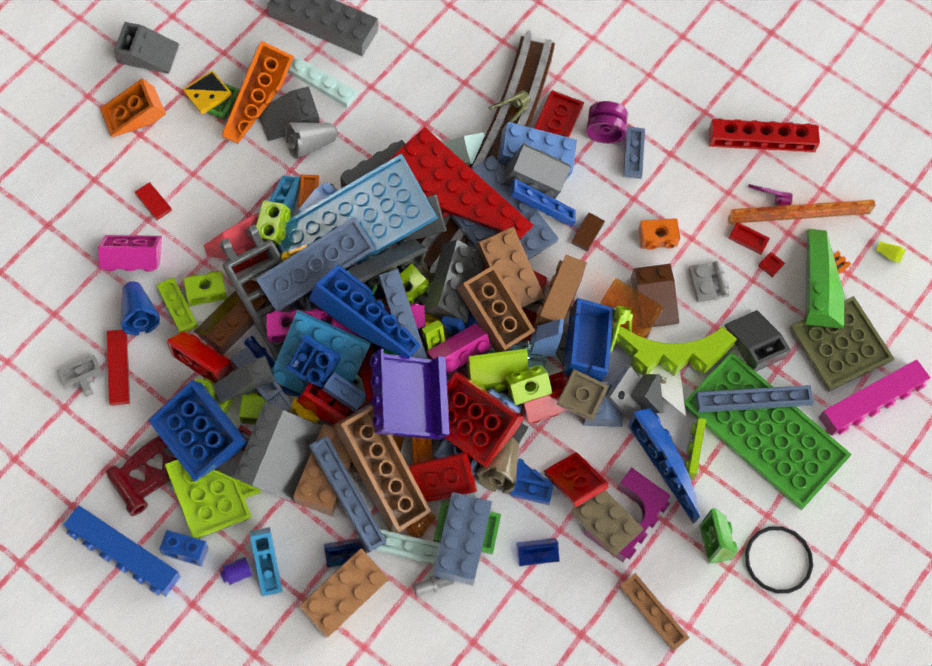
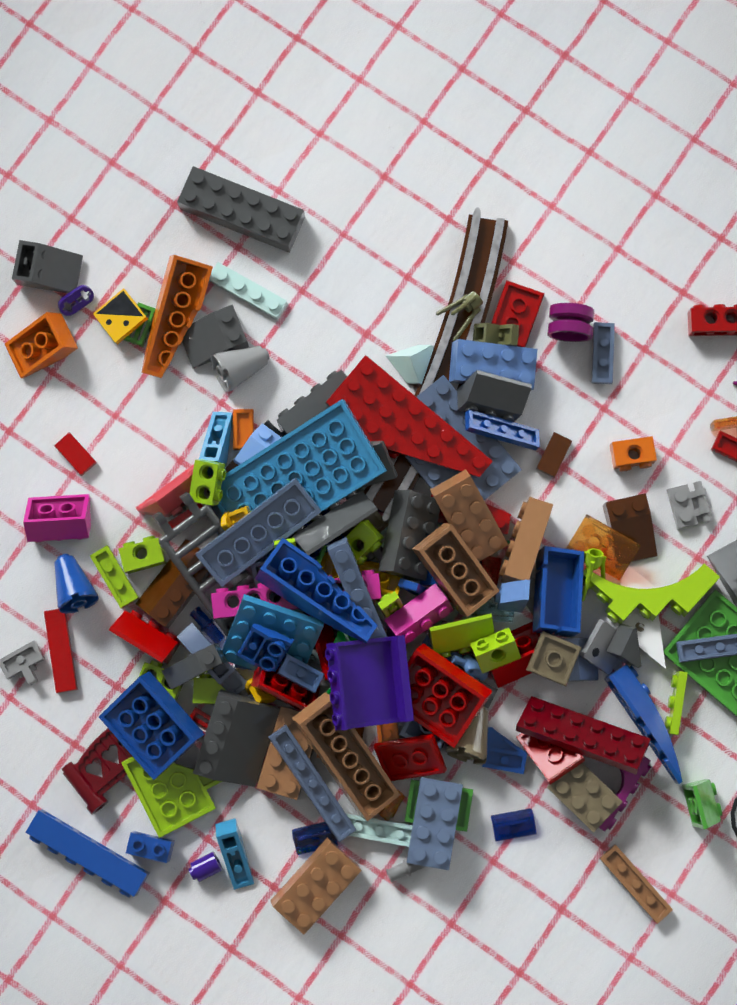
camera: 10 degrees right, 15 degrees up
(170, 81) = (78, 304): none -> dark purple beam
(551, 124) = (496, 334): none -> olive brick
(608, 465) = (583, 735): none -> dark red plate

